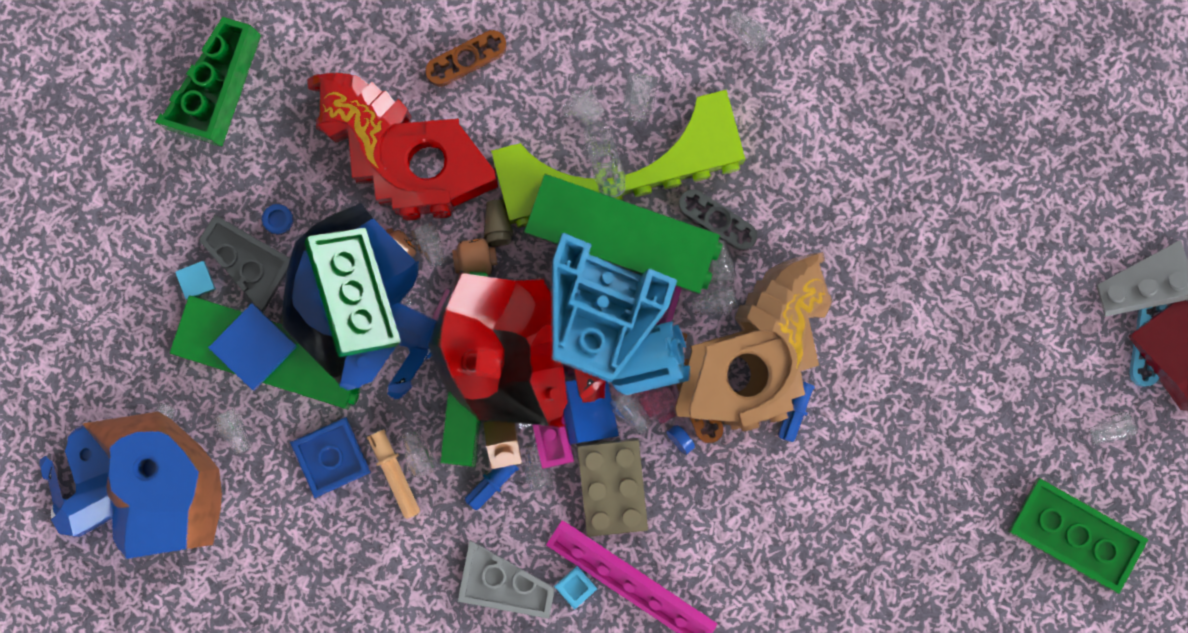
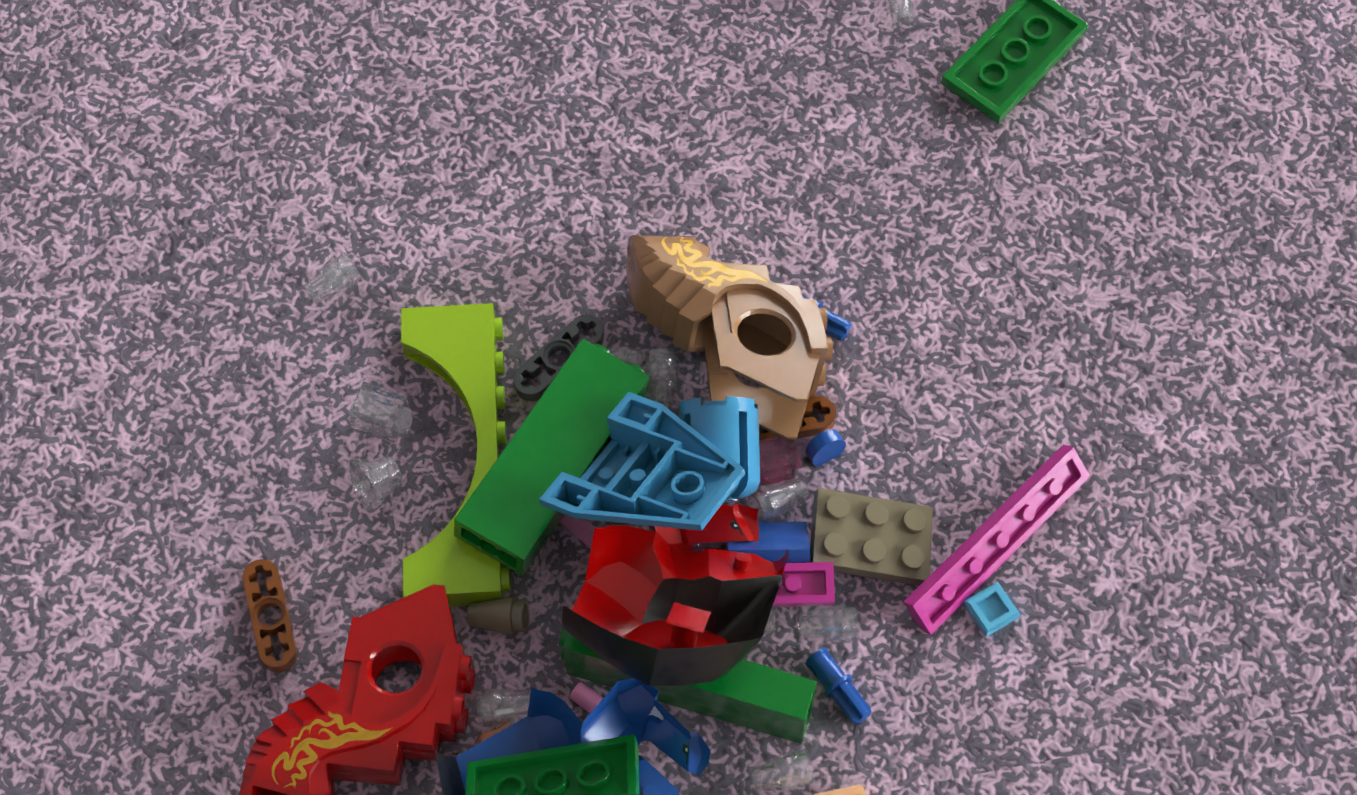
camera: 80 degrees left, 20 degrees down
(474, 257) = (537, 652): nougat head -> none
(502, 444) = (792, 651): nougat brick -> none
(502, 585) = (975, 697): light grey wing -> none
(601, 170) = (434, 462): clear beam -> none

